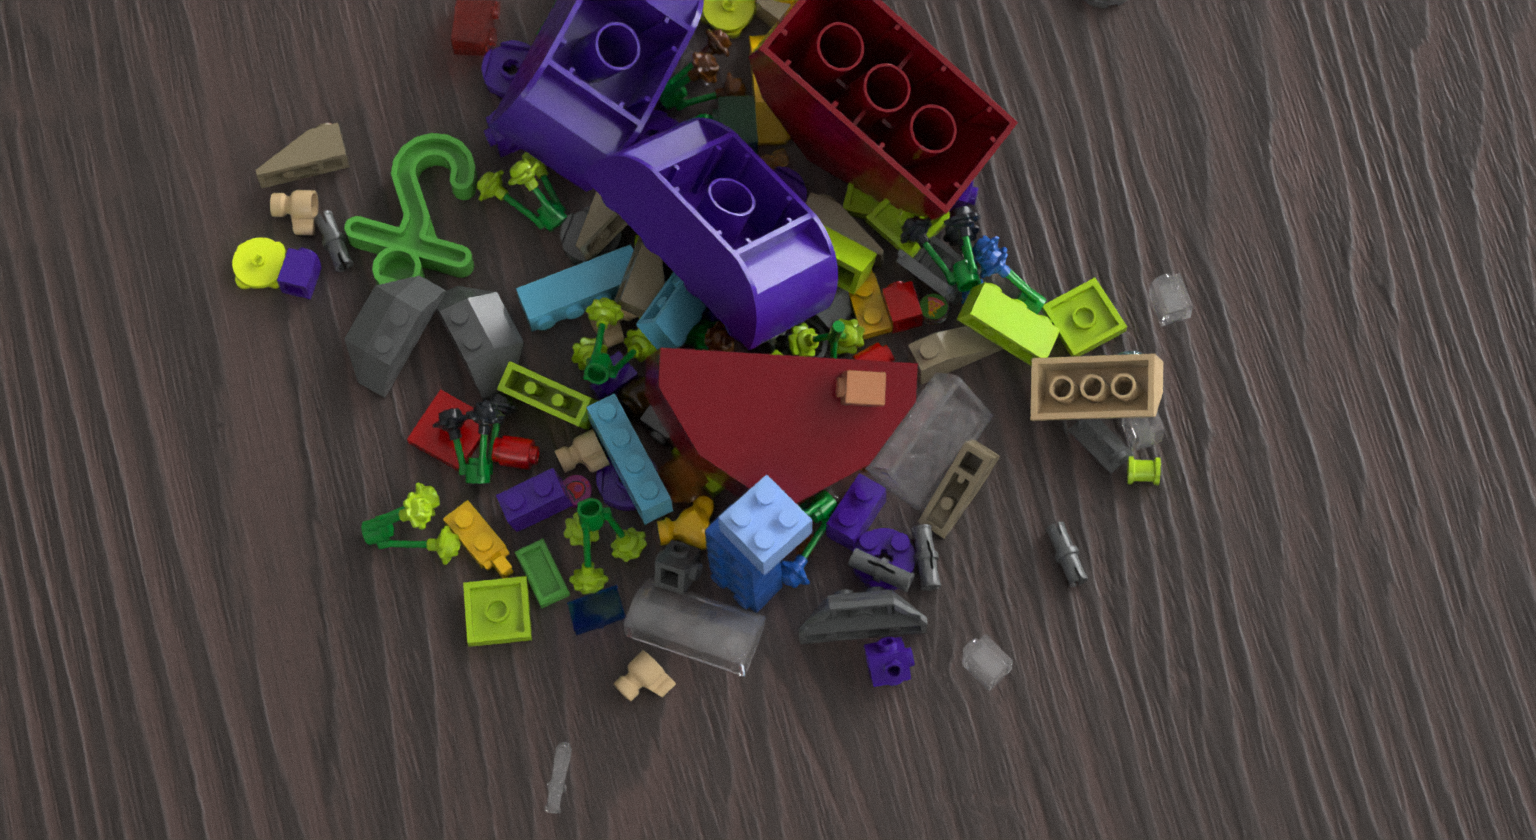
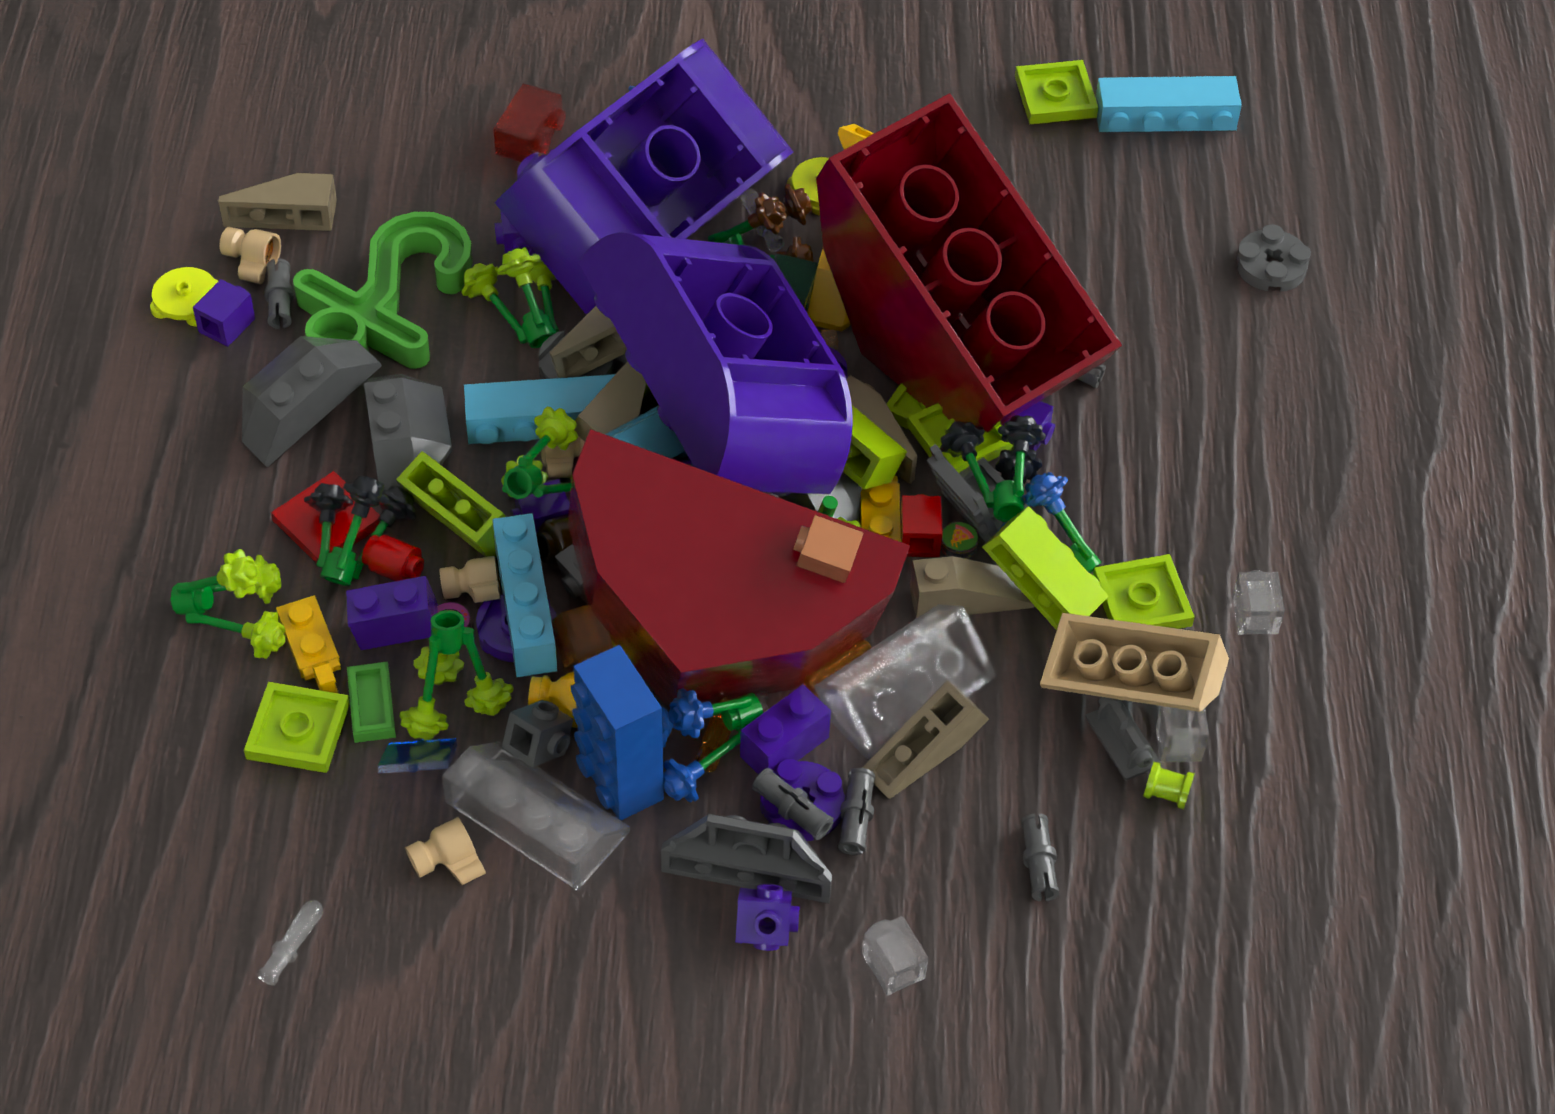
camera: 10 degrees right, 15 degrees down
(765, 524) = (650, 672): light blue brick -> none

